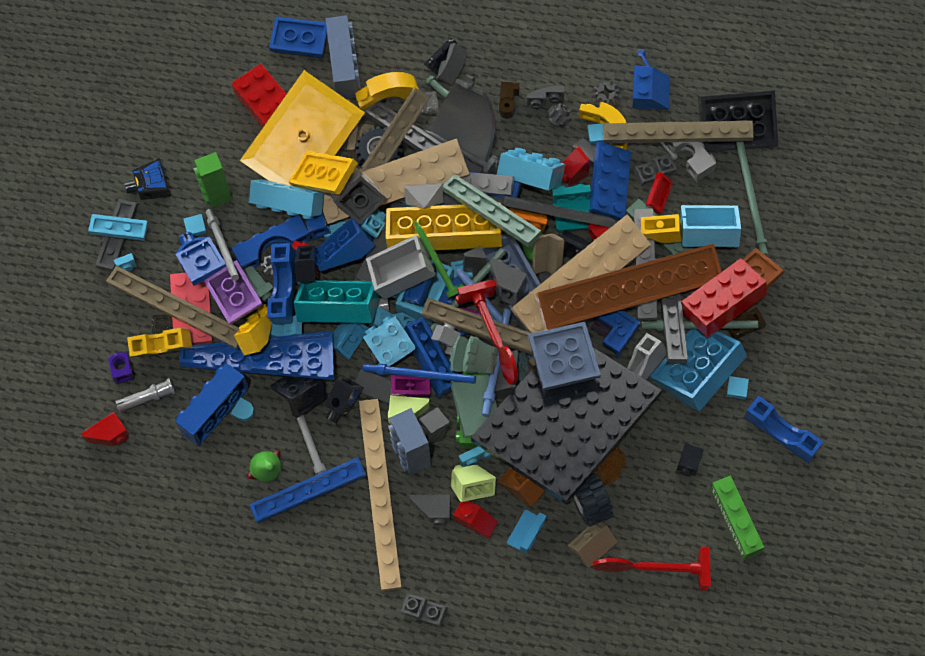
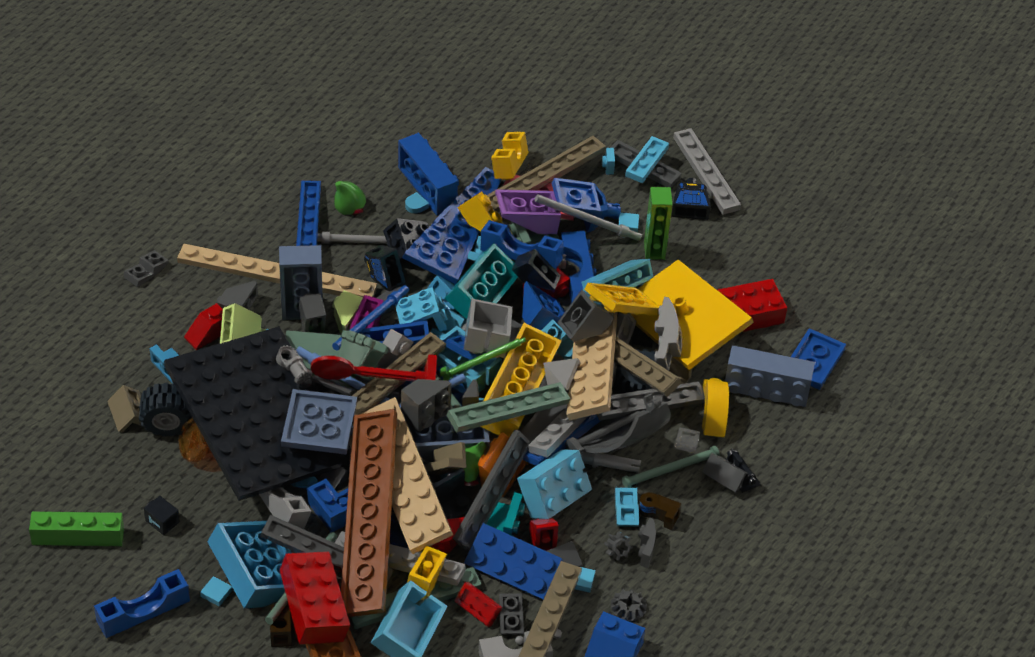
camera: 105 degrees right, 20 degrees down
(104, 182) = (707, 171): none -> light grey plate
(106, 432) = (444, 108): red slope -> none
(124, 374) = (499, 128): dark purple brick -> none
(154, 392) = (466, 147): light grey pin -> none
(332, 133) = (669, 334): none -> light grey slope
(512, 402) = (295, 364): none -> light grey connector
(517, 124) = (626, 507): none -> medium azure slope
(603, 114) = (597, 590): yellow arch -> none
(701, 568) = (47, 481): red piece -> none

